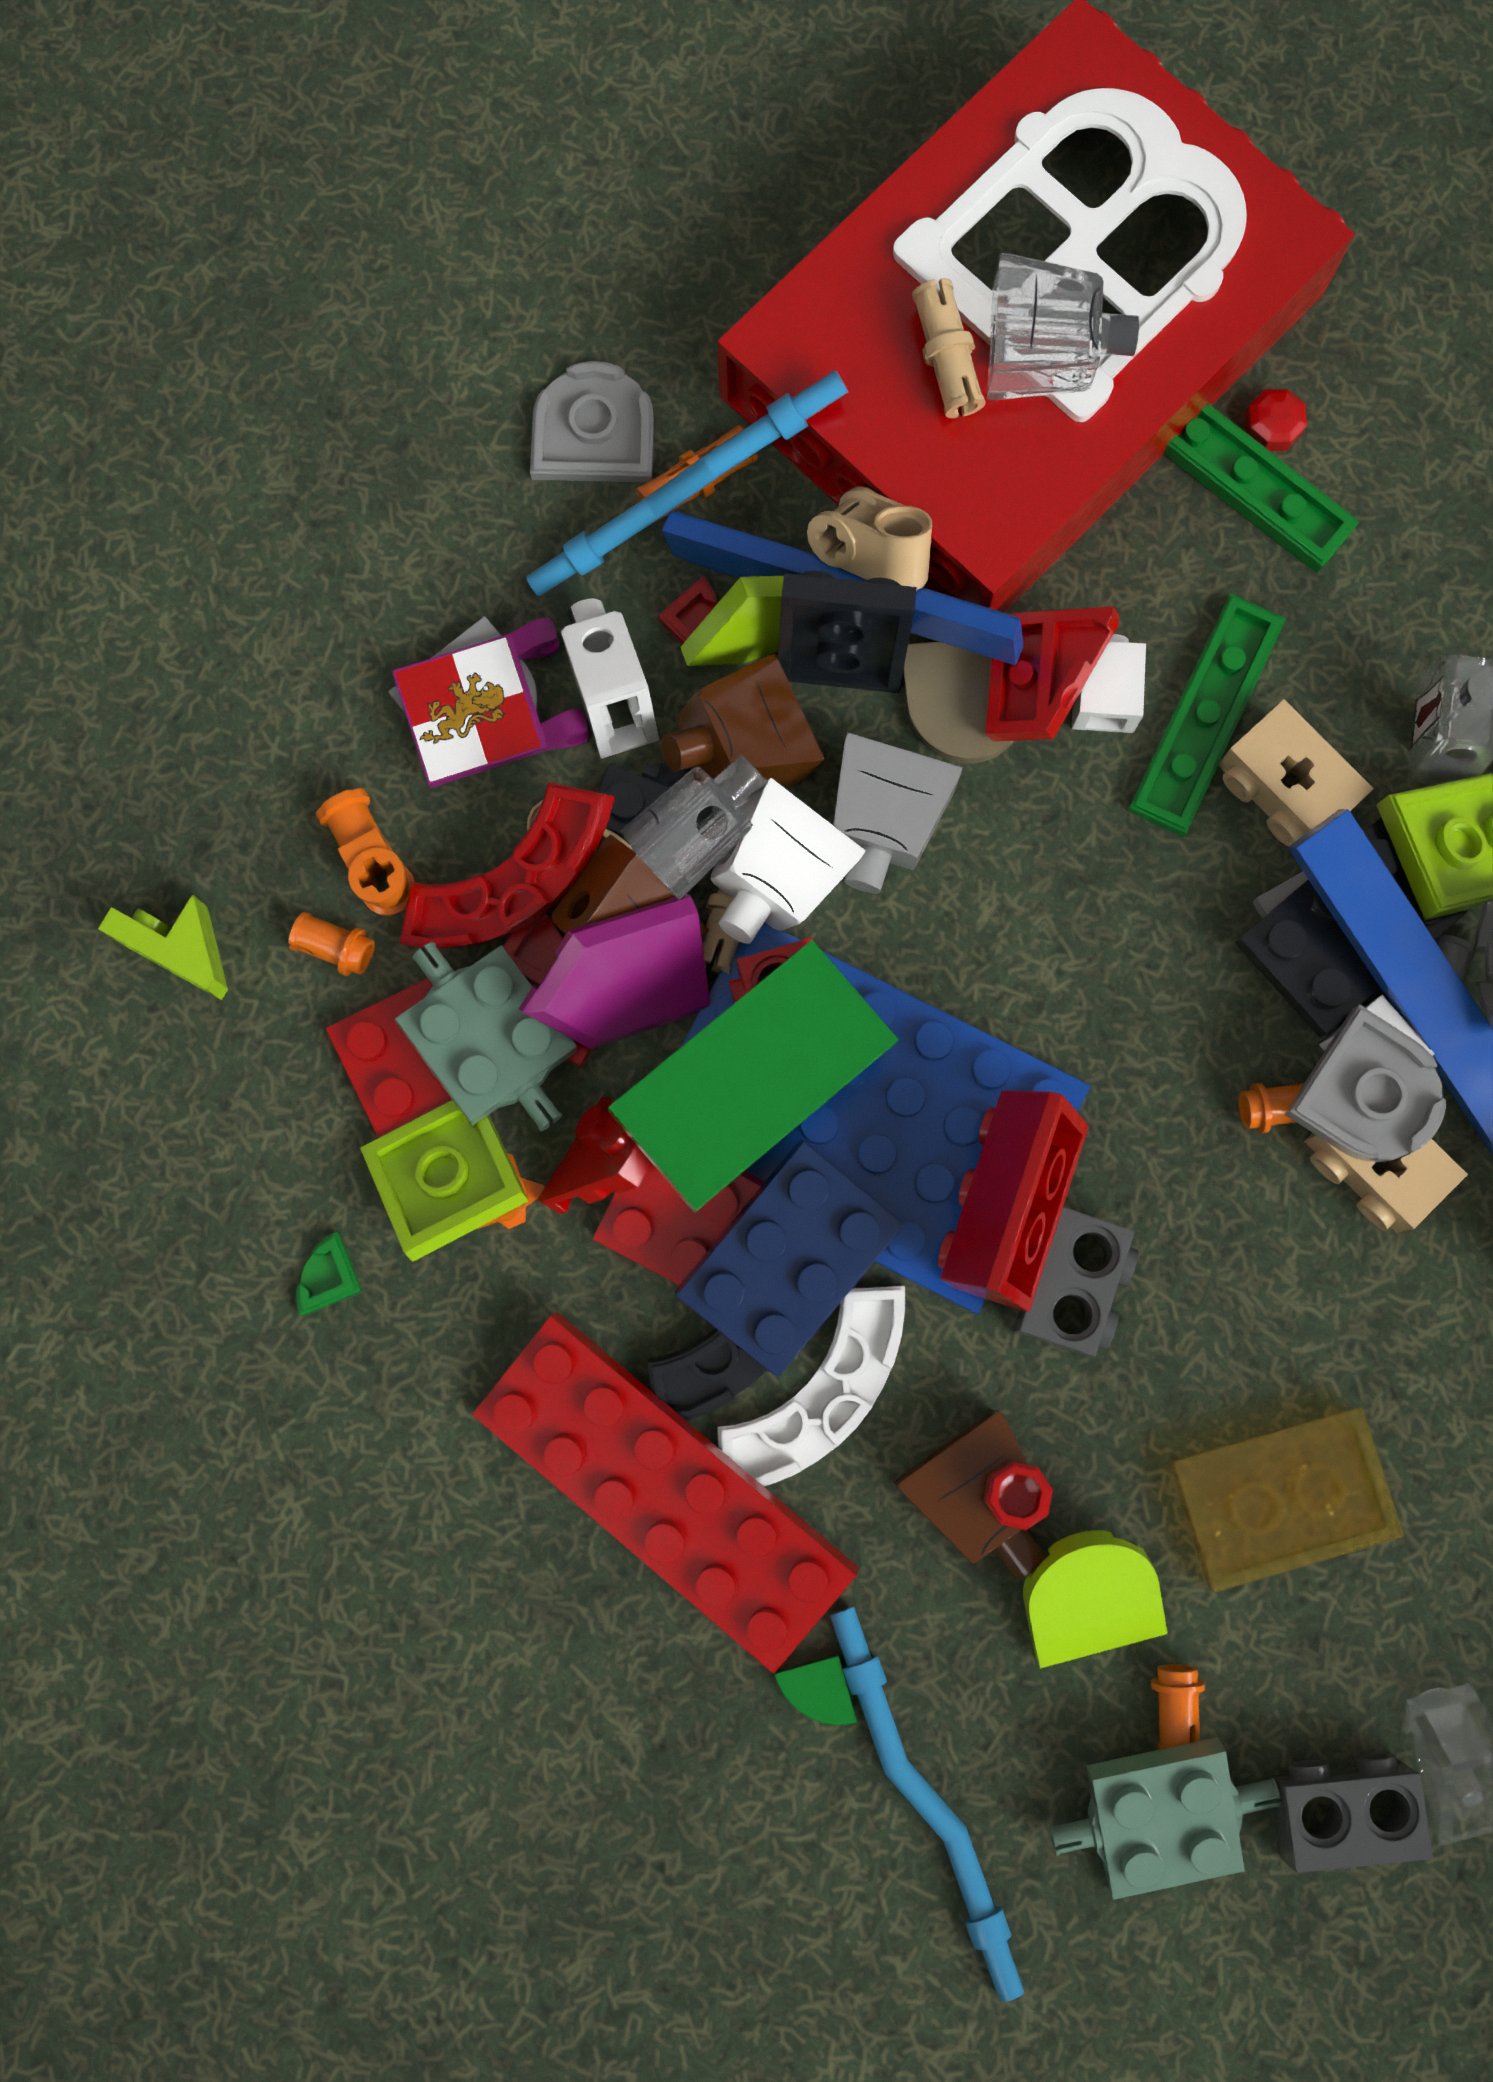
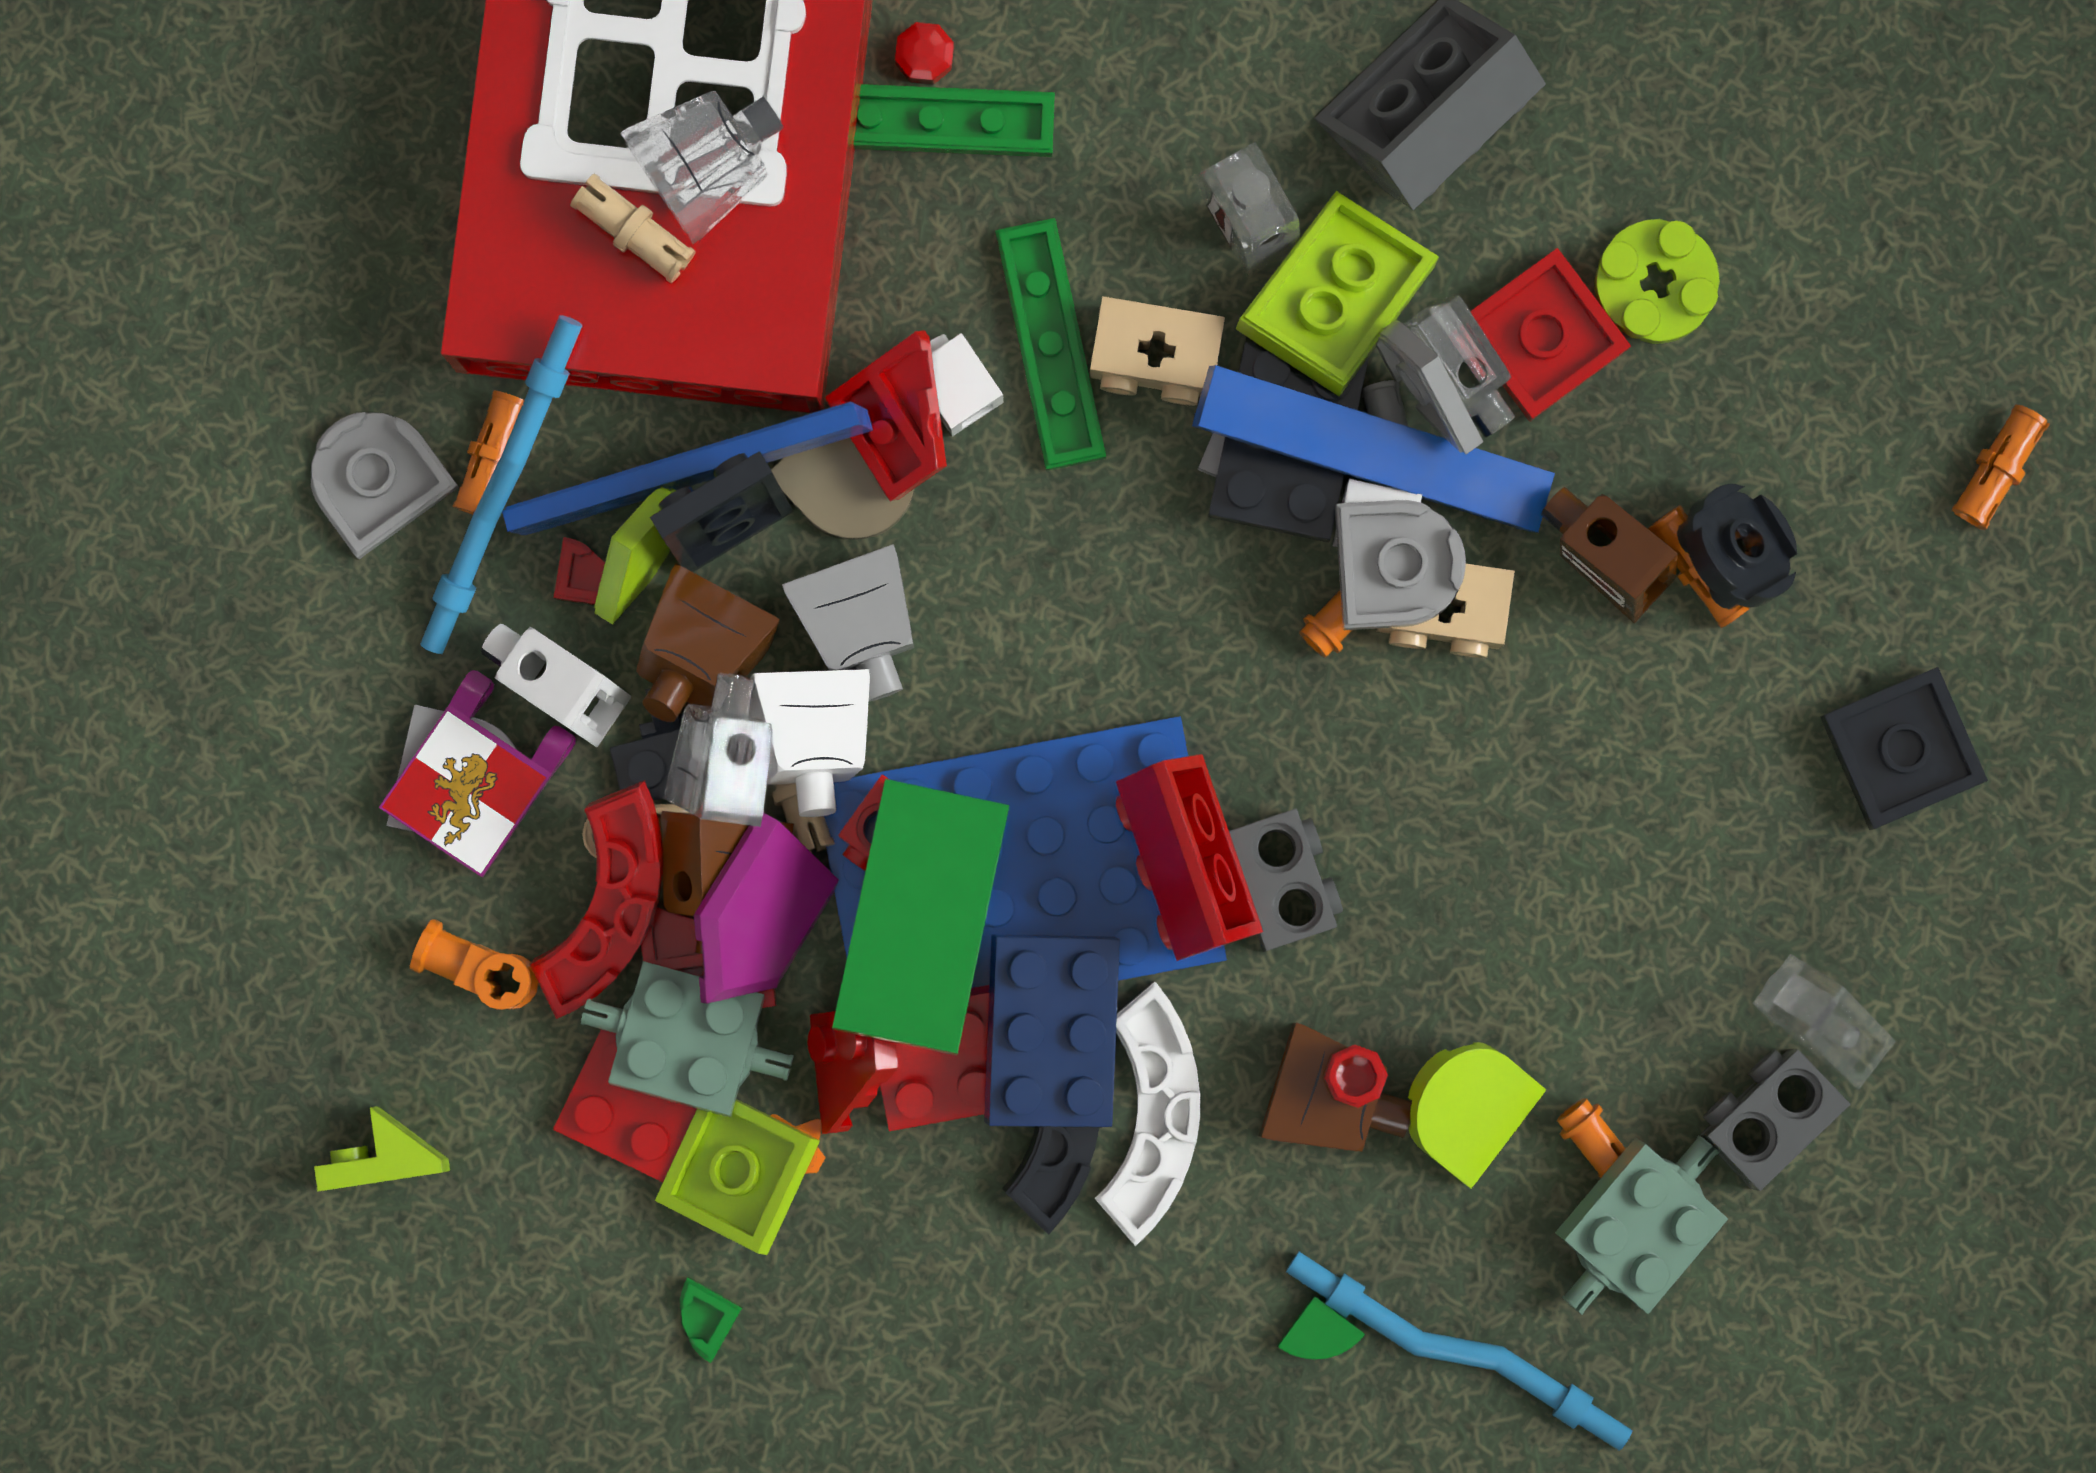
camera: 40 degrees left, 5 degrees up
(332, 943) = (504, 1059): orange pin -> none
(666, 1492) = (1091, 1276): red plate -> none
(874, 538) = (691, 418): tan piece -> none
(1286, 1499) = (1560, 920): clear yellow plate -> none

